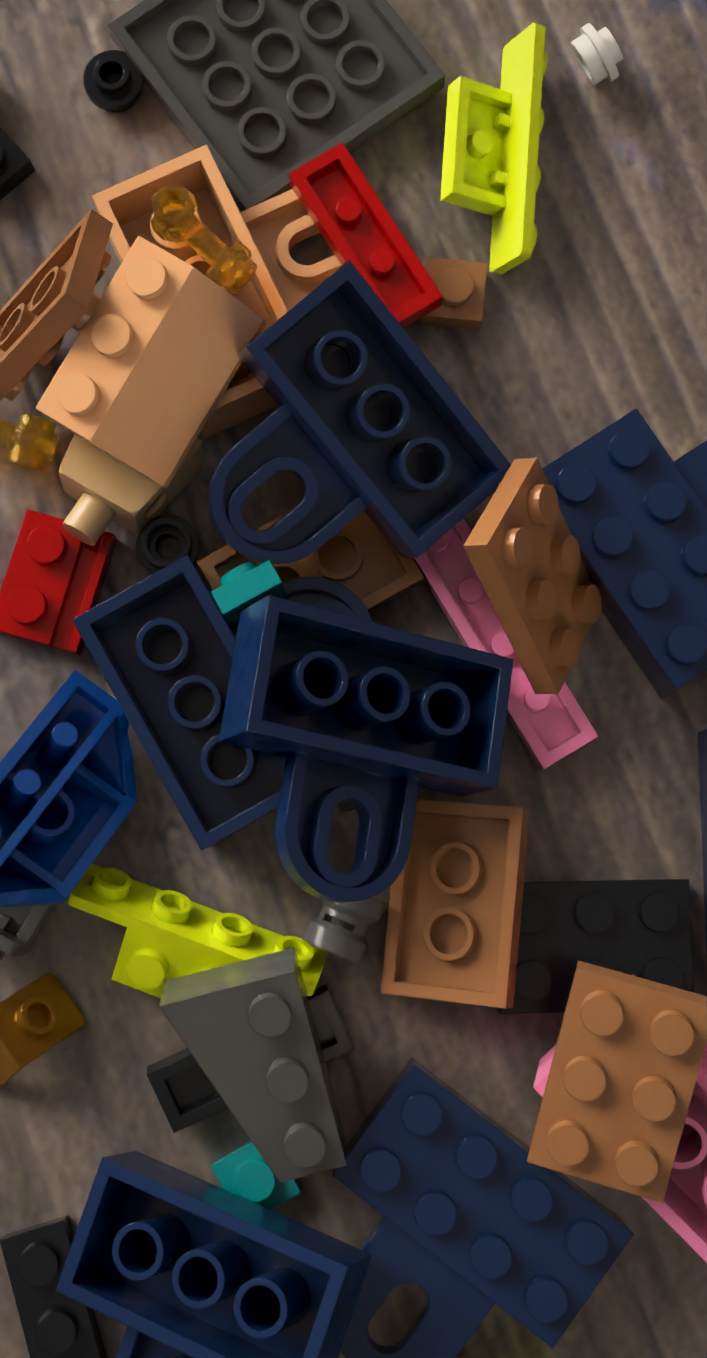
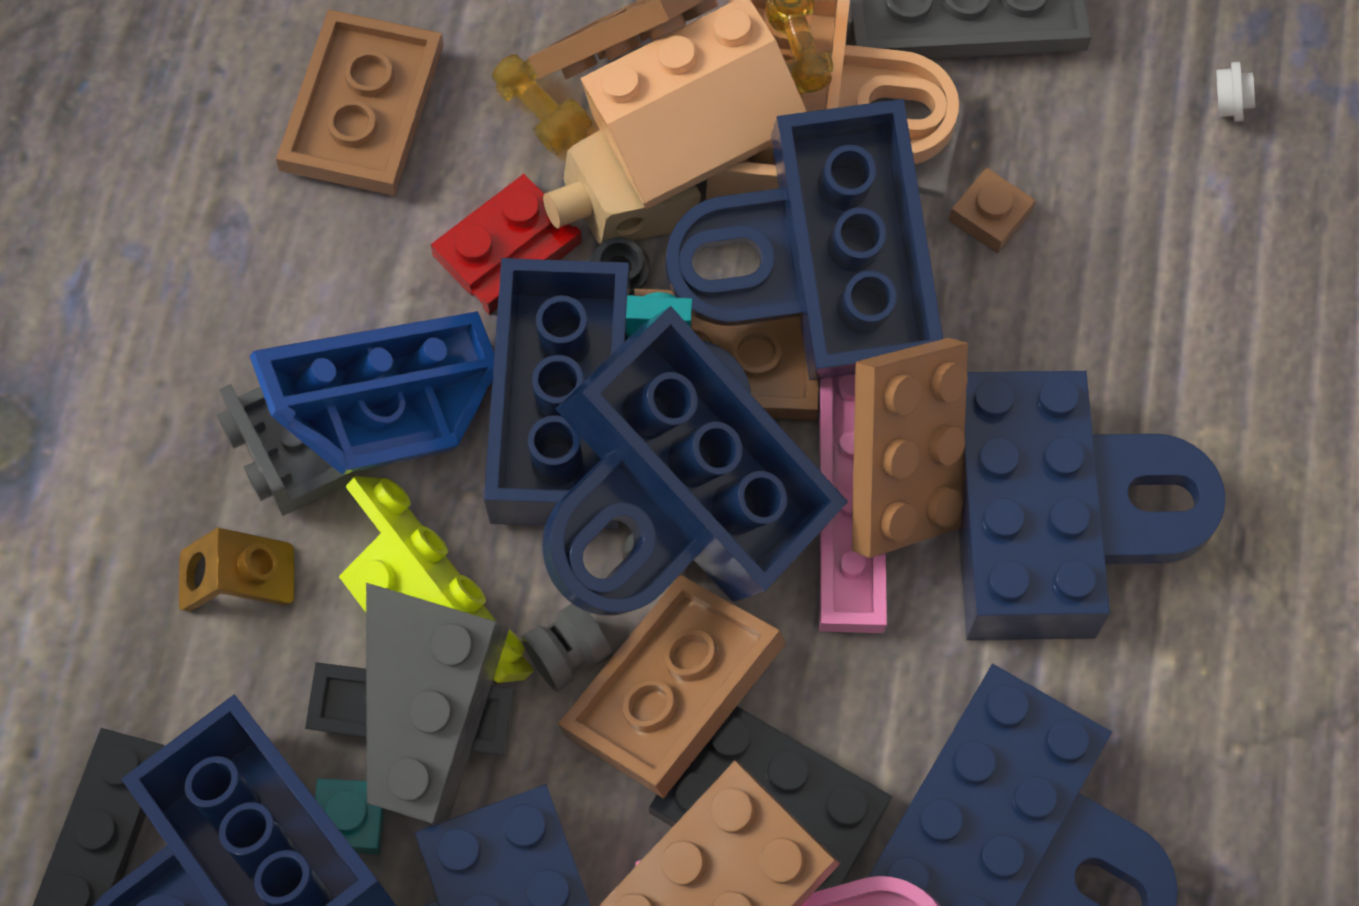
camera: 30 degrees right, 15 degrees down
(364, 233) = (939, 114): red plate -> none
(495, 148) = (1096, 113): neon yellow bracket -> none

